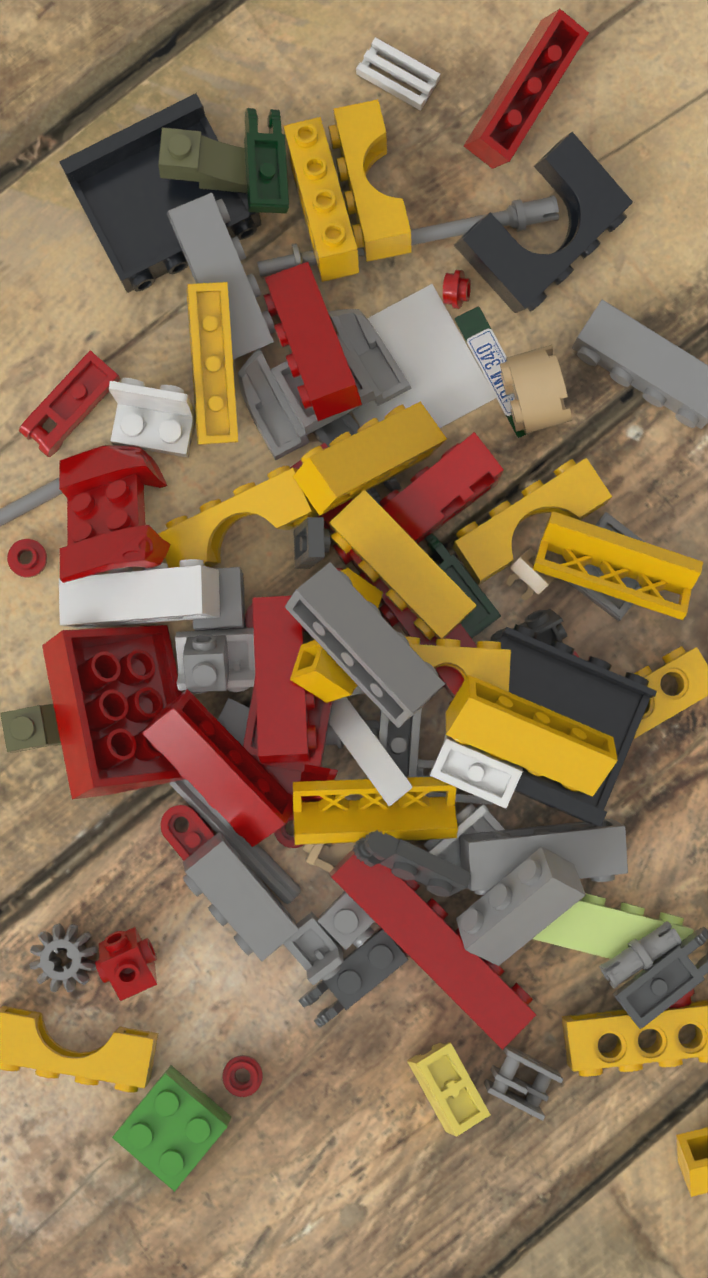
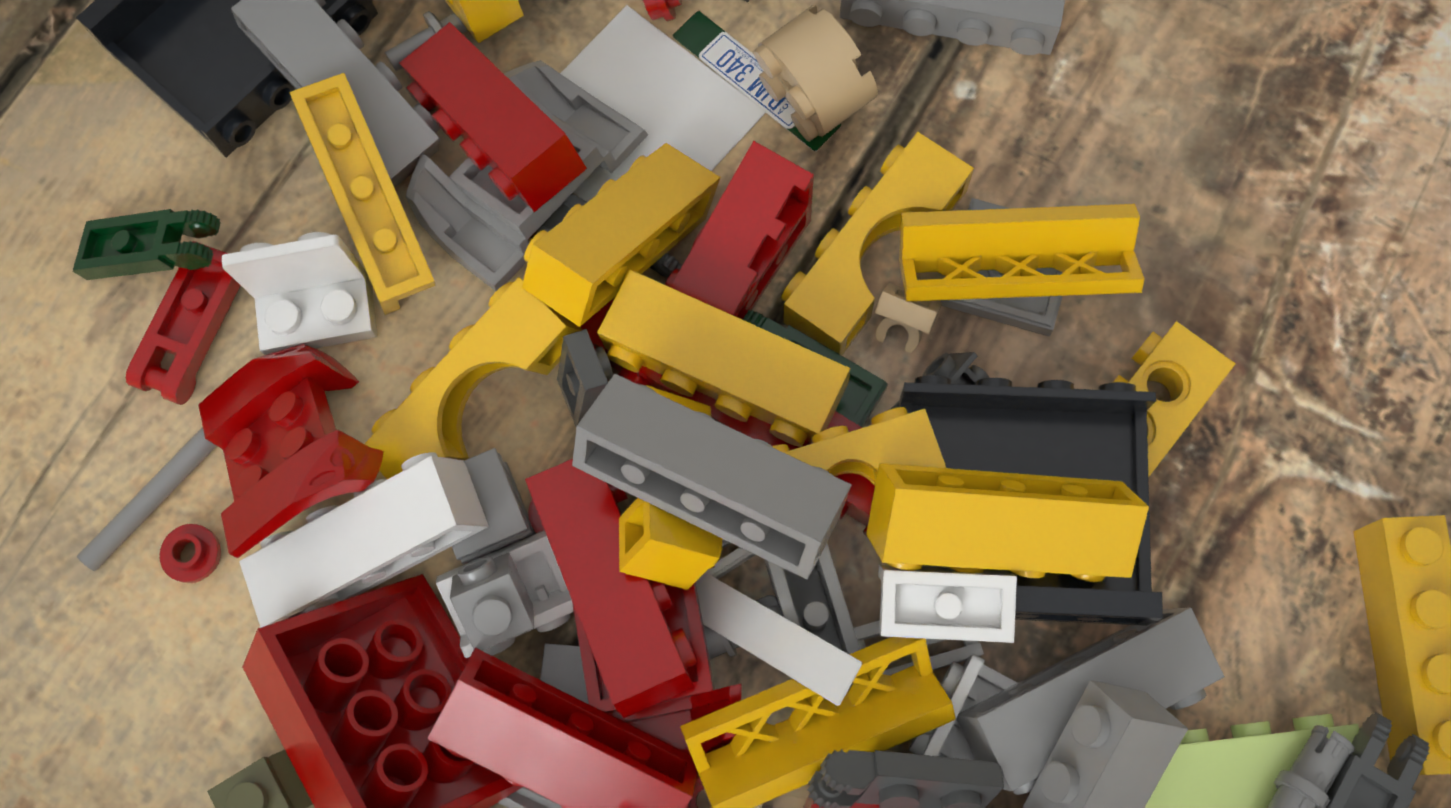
camera: 15 degrees left, 10 degrees down
(57, 341) = (144, 243): none -> dark green hinge

